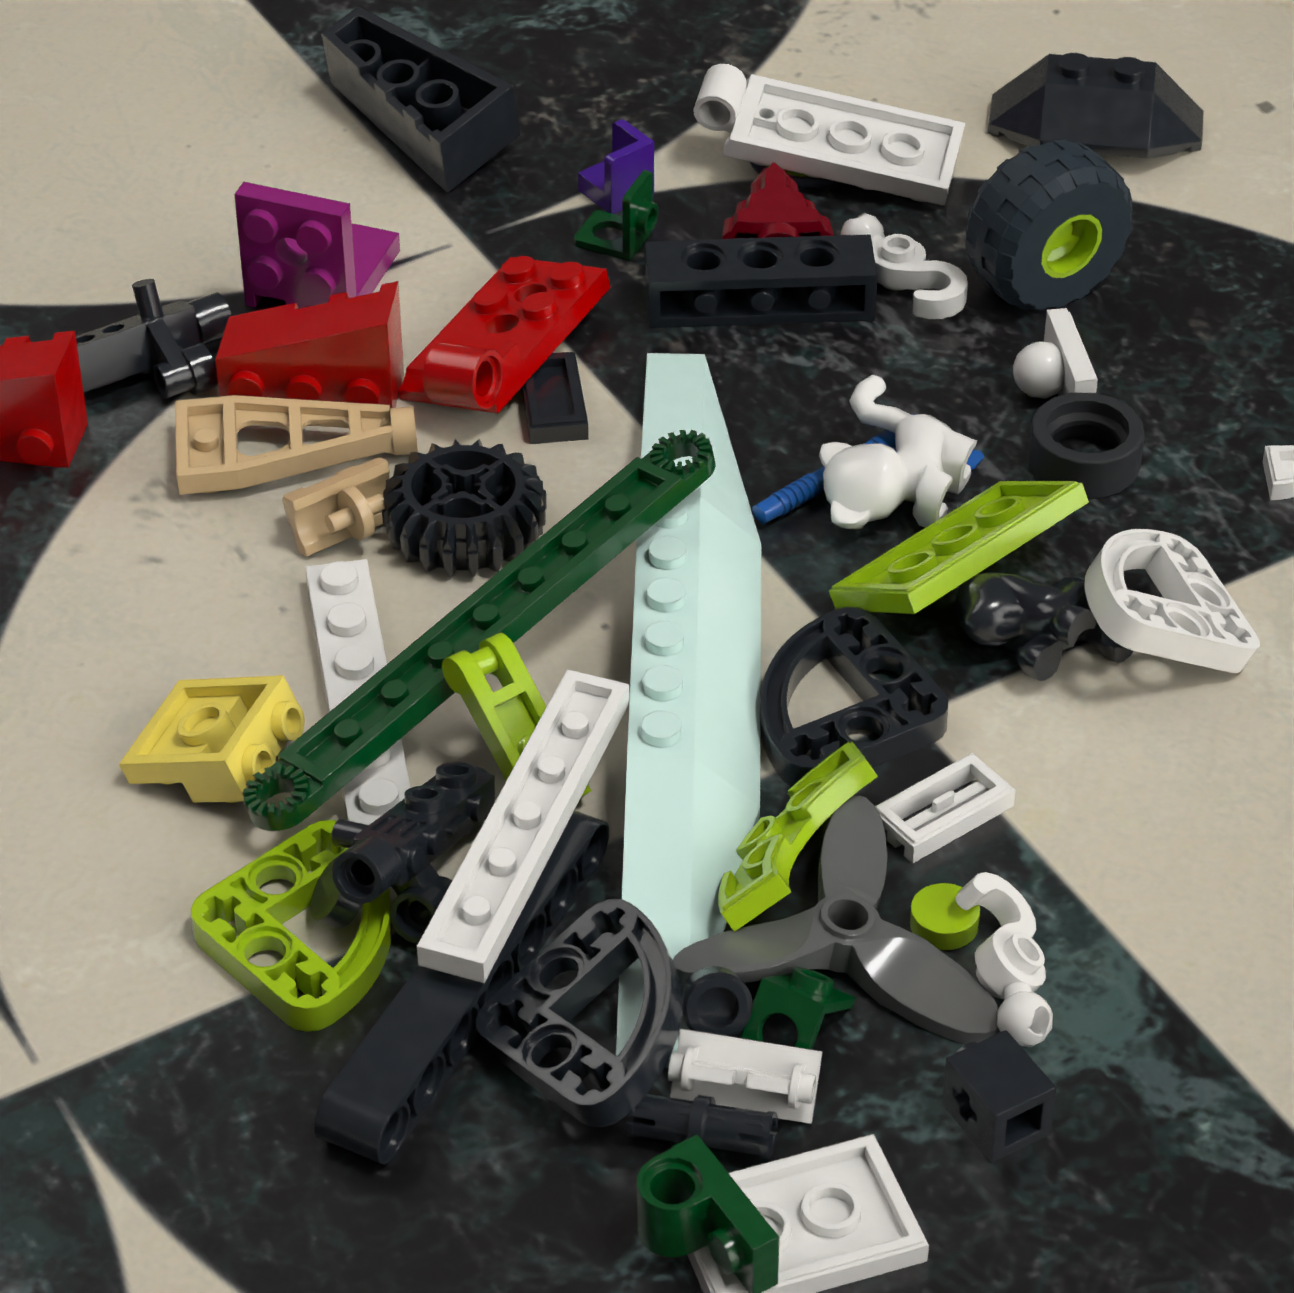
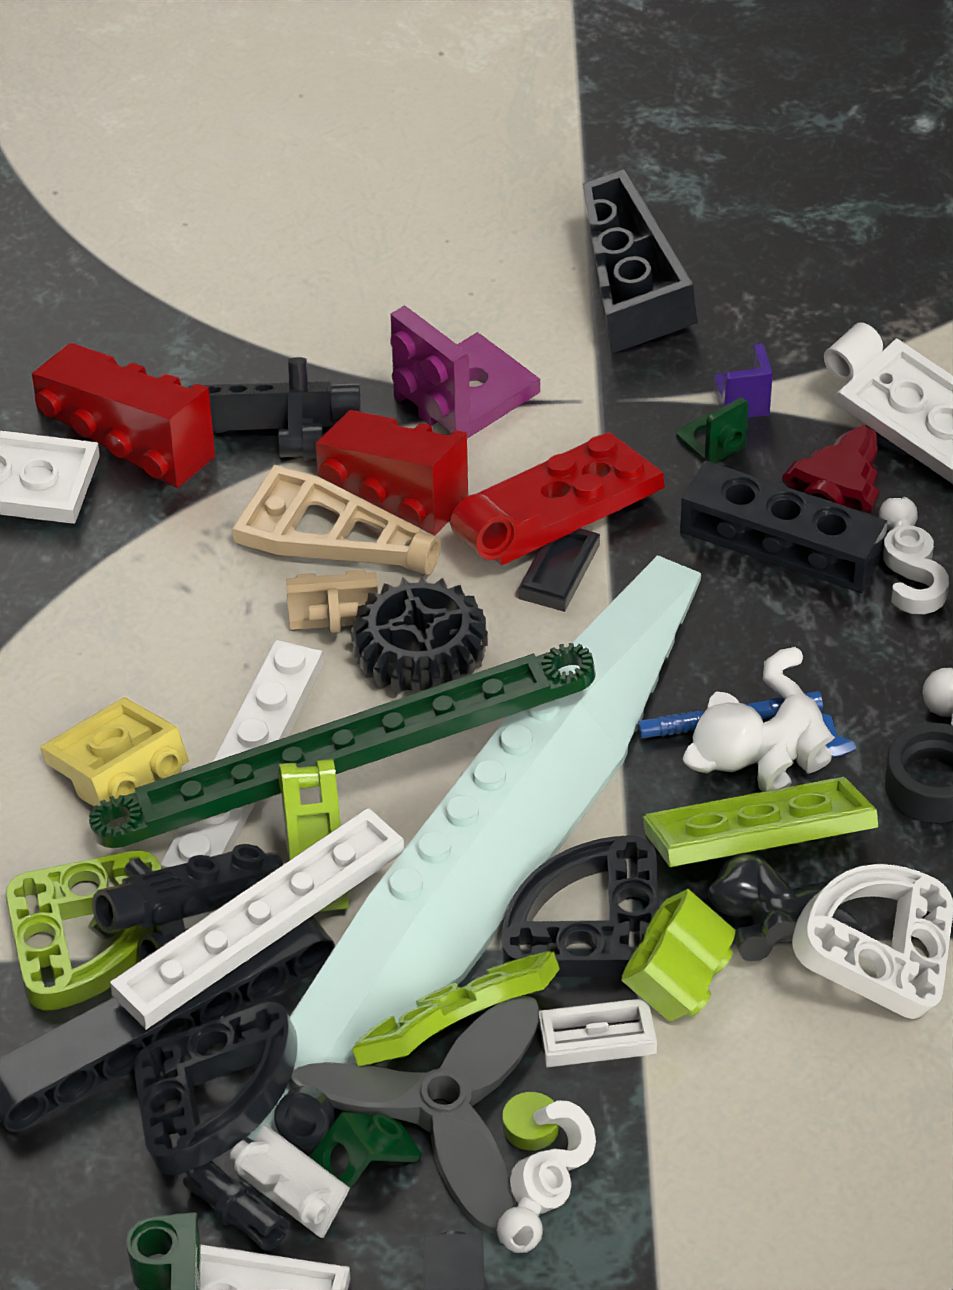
camera: 30 degrees right, 5 degrees up
(982, 696) = (680, 956): none -> lime brick

